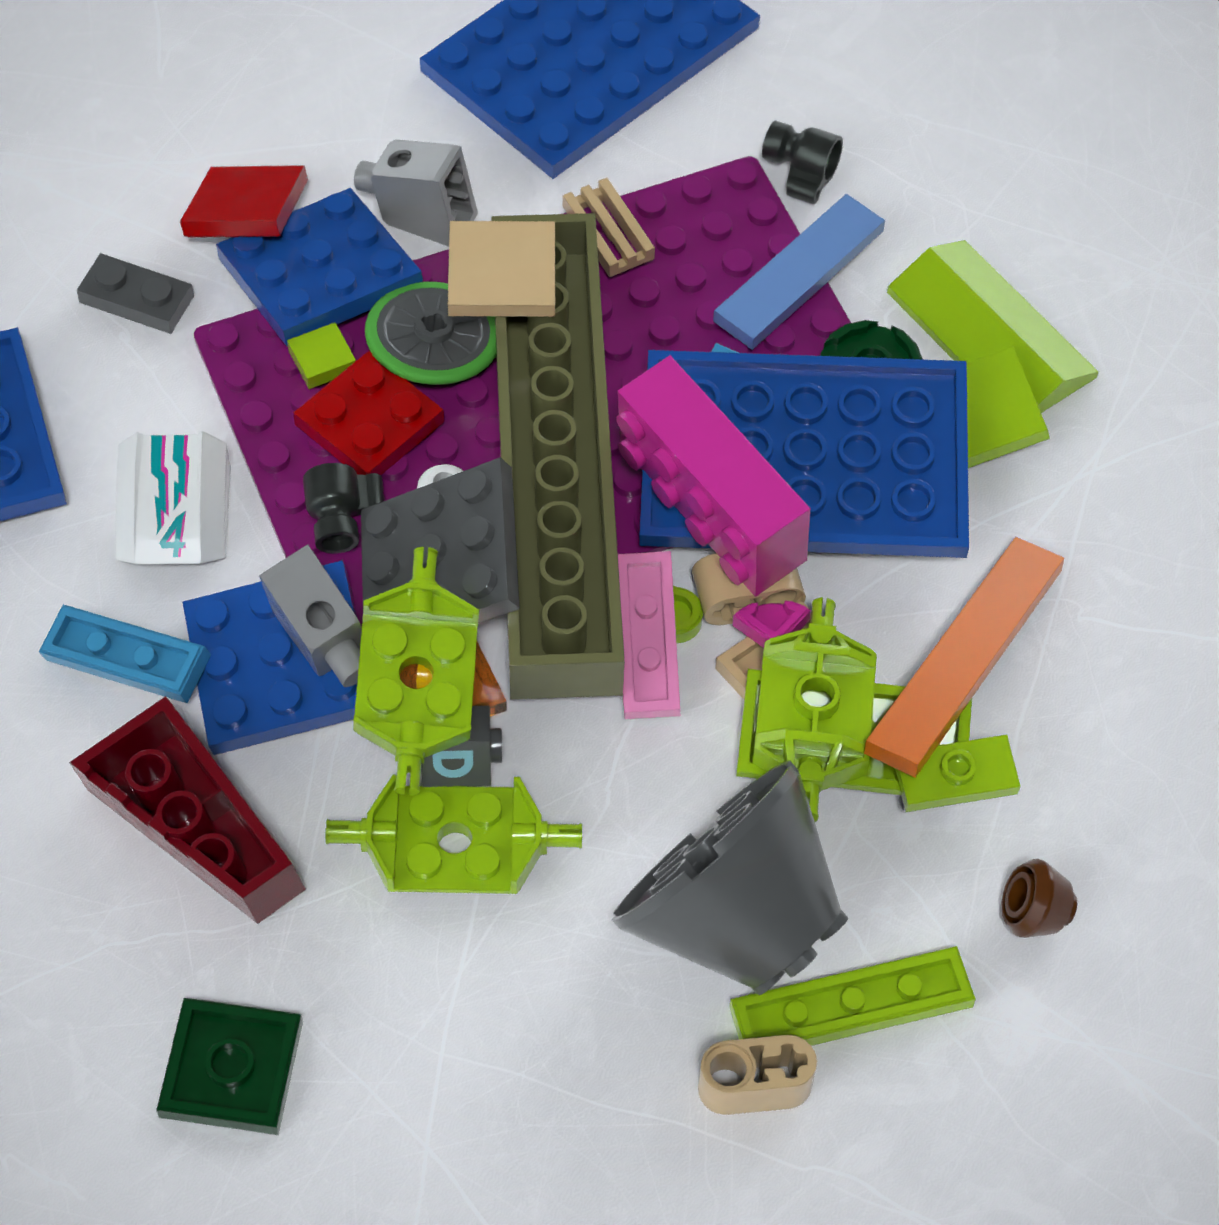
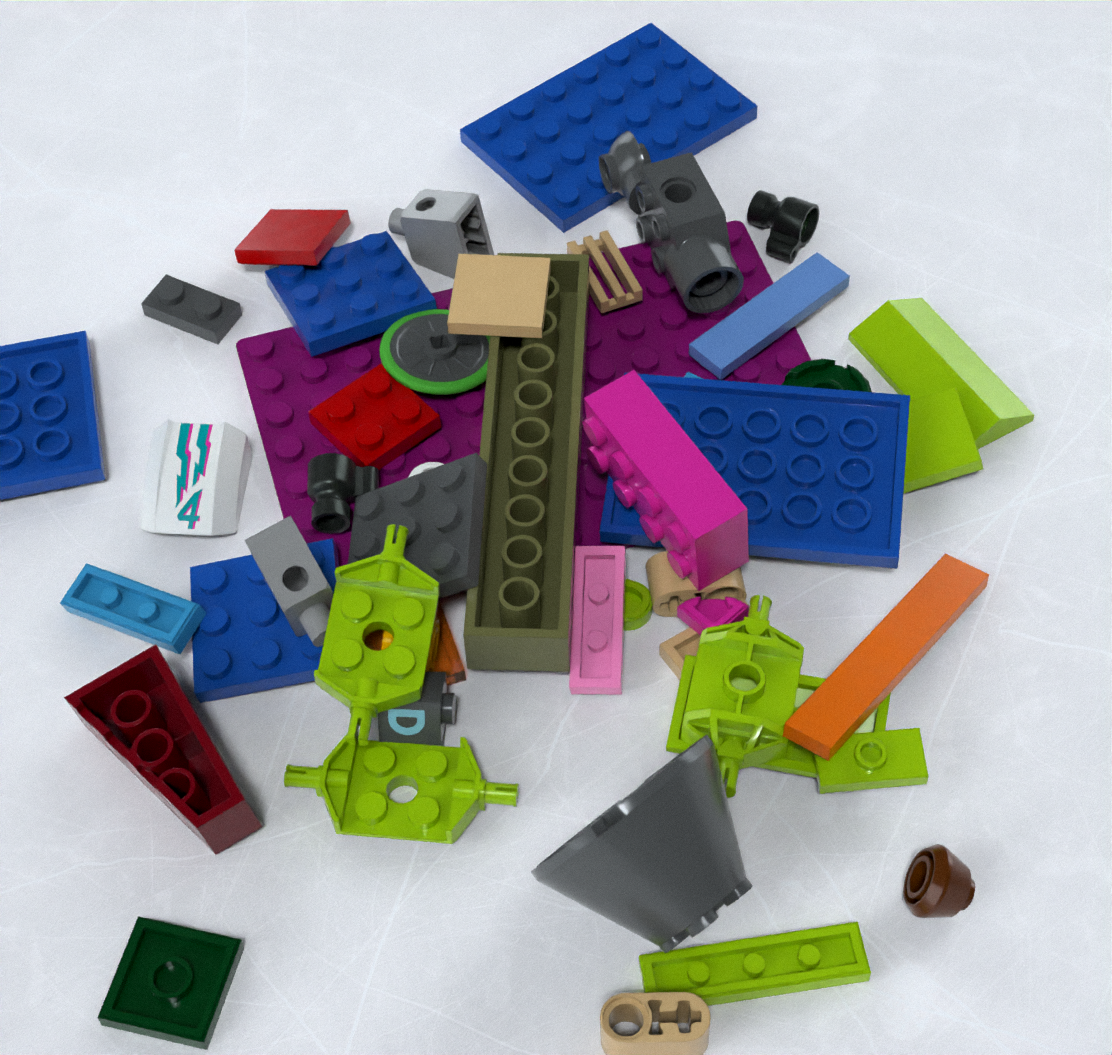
camera: 10 degrees right, 5 degrees down
(320, 355) = (339, 365): lime tile -> none
(688, 165) = (677, 220): none -> dark grey brick

